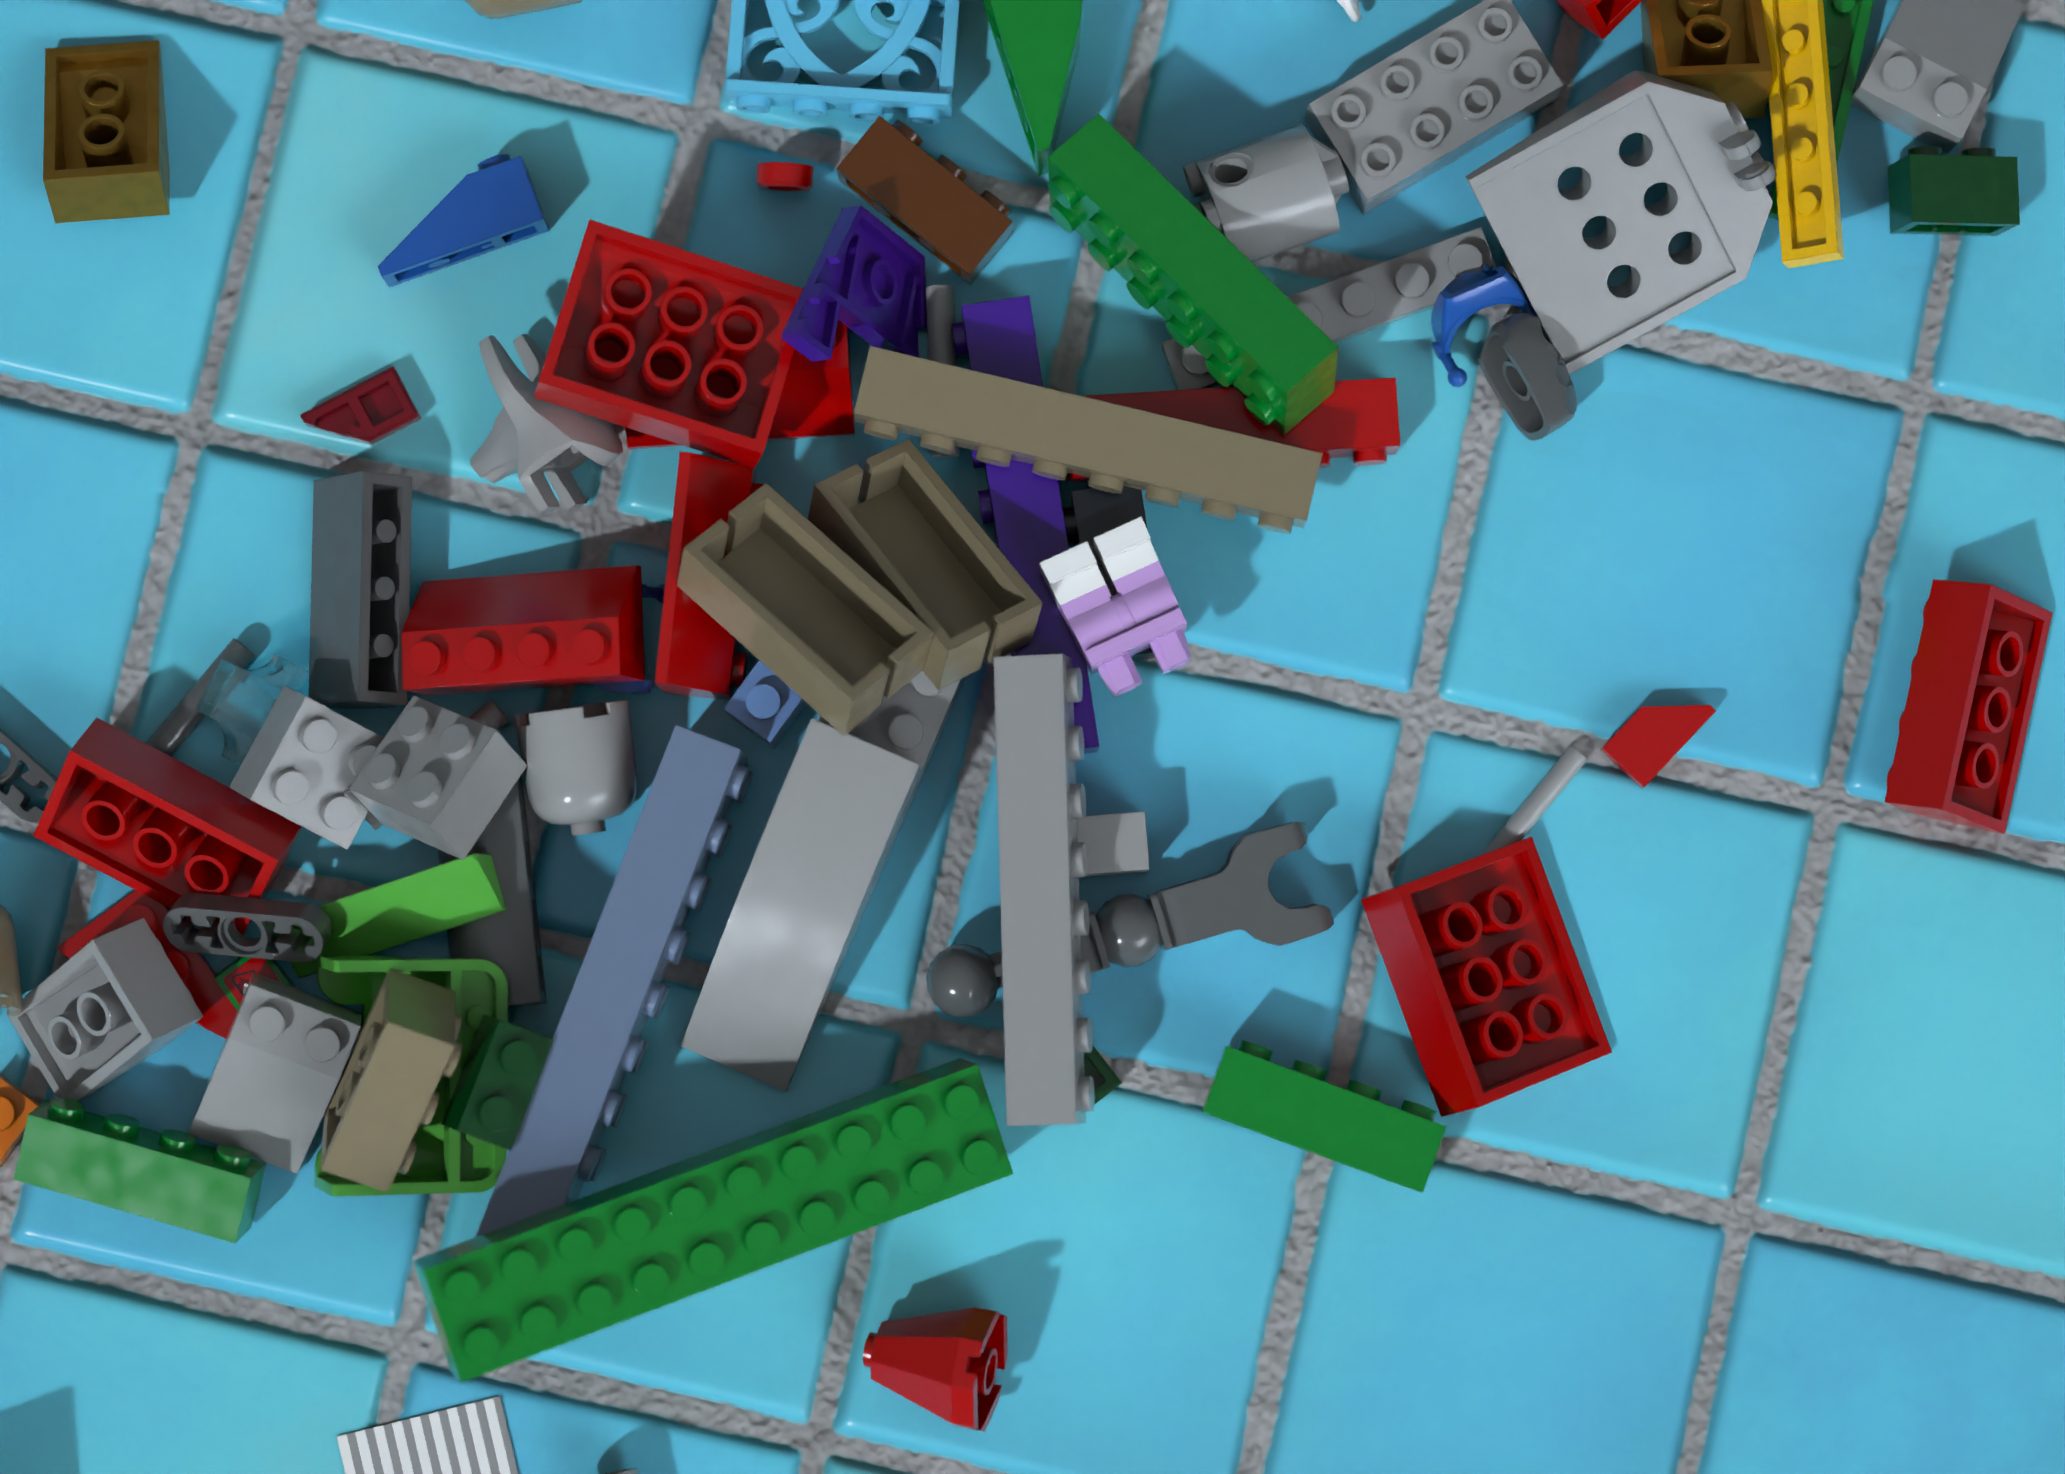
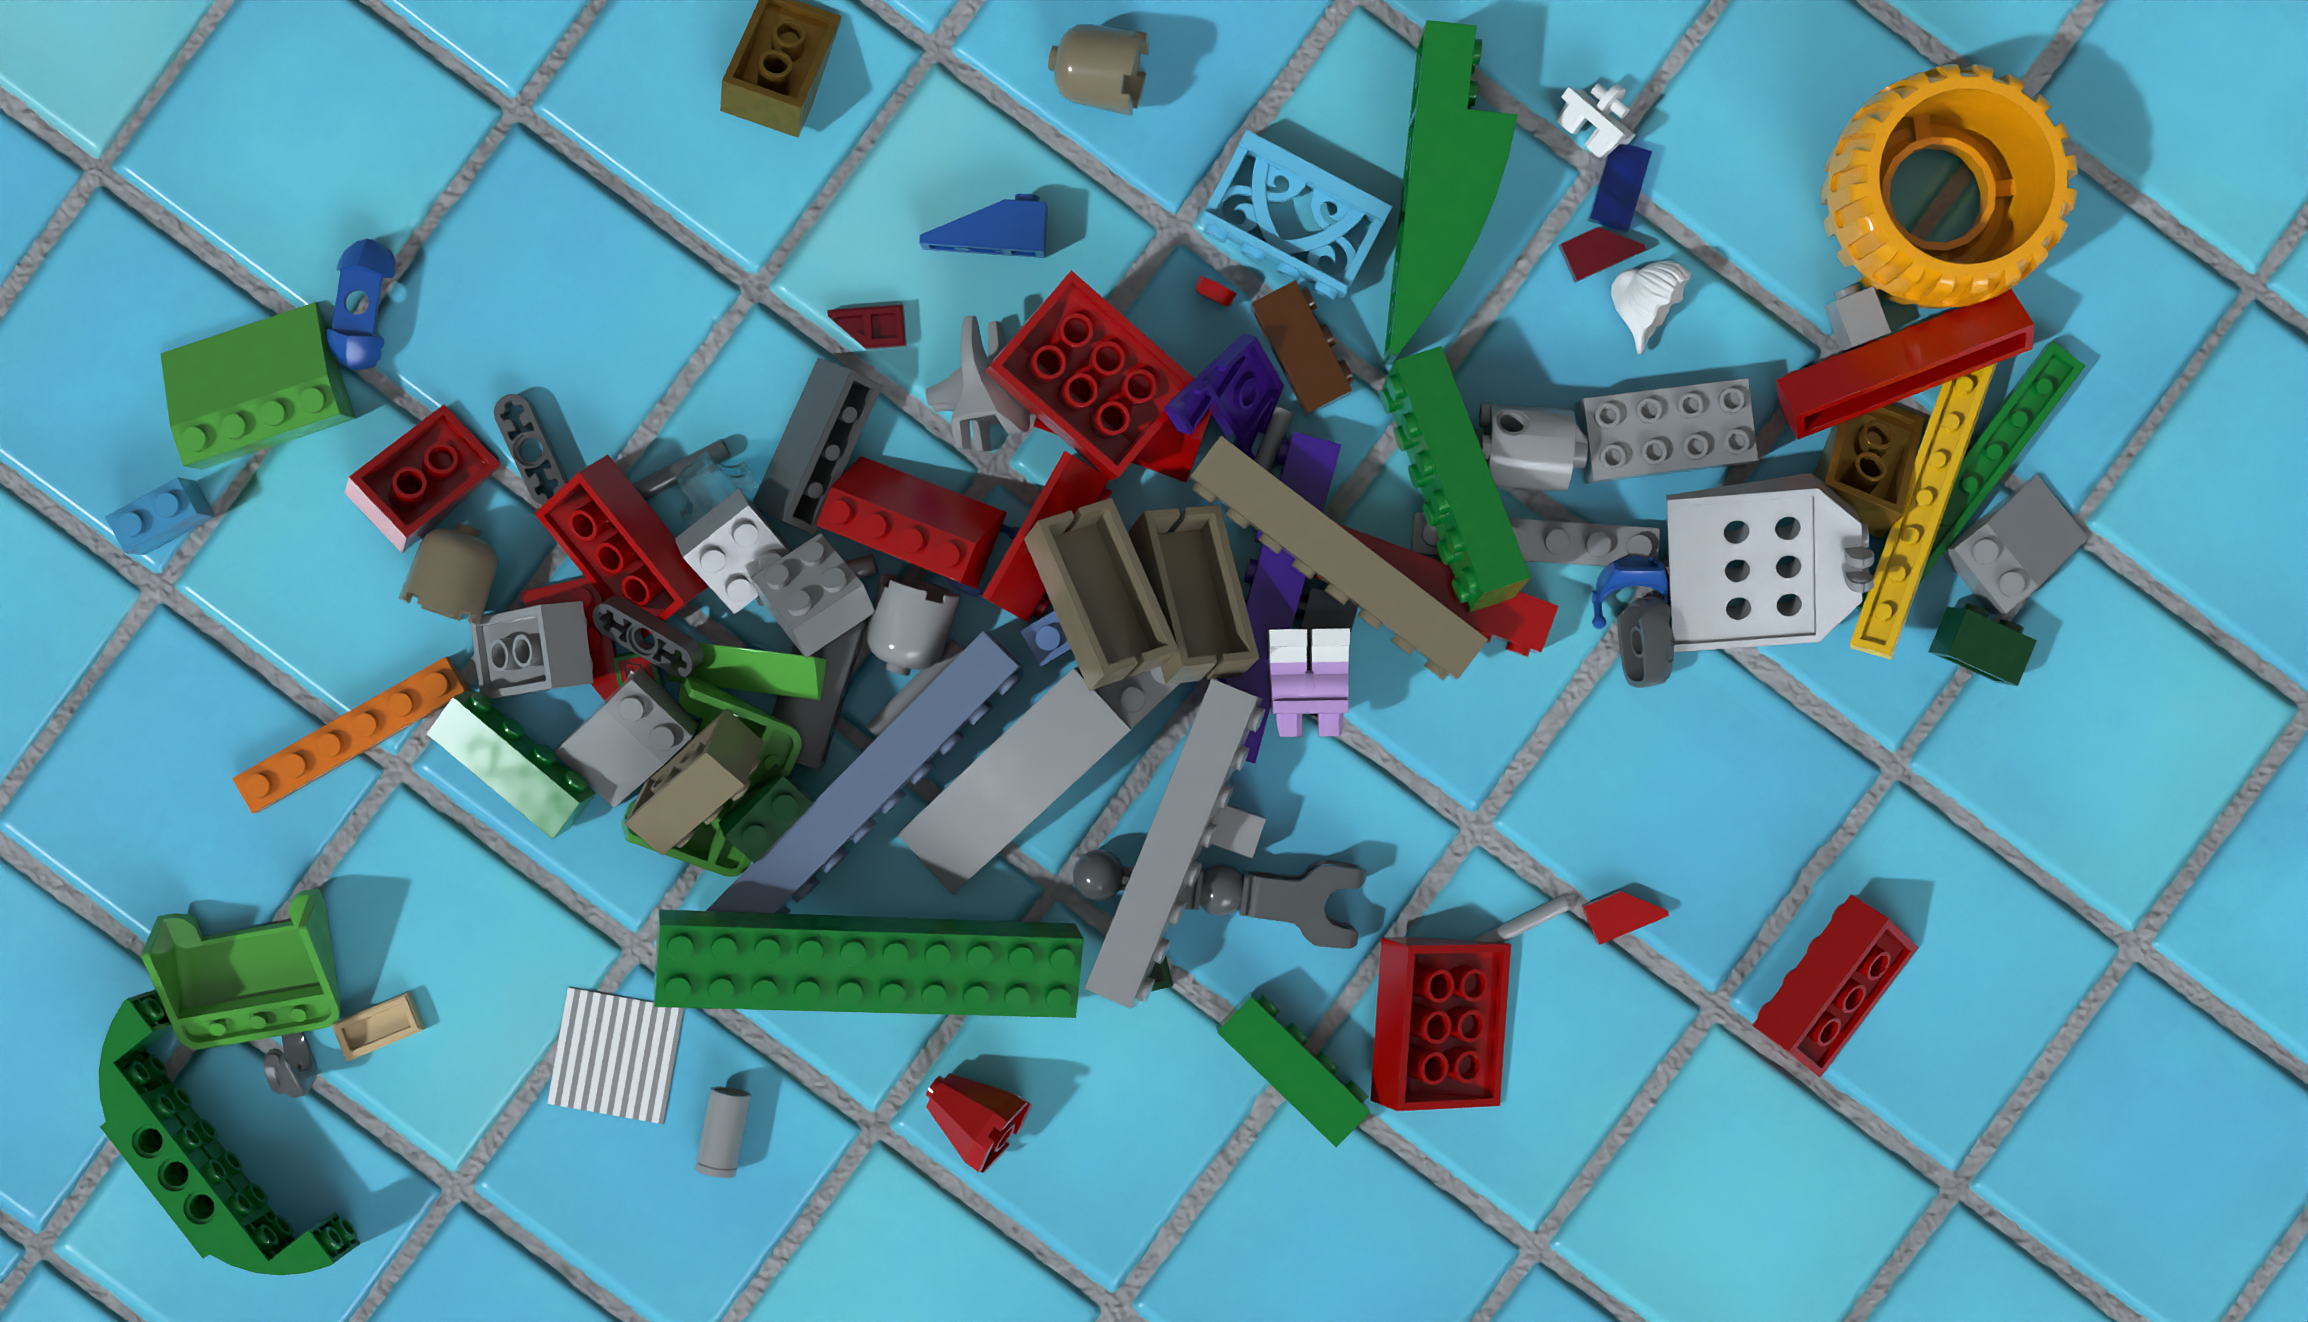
camera: 20 degrees right, 5 degrees up
(617, 849) = (913, 689): none -> light grey piece

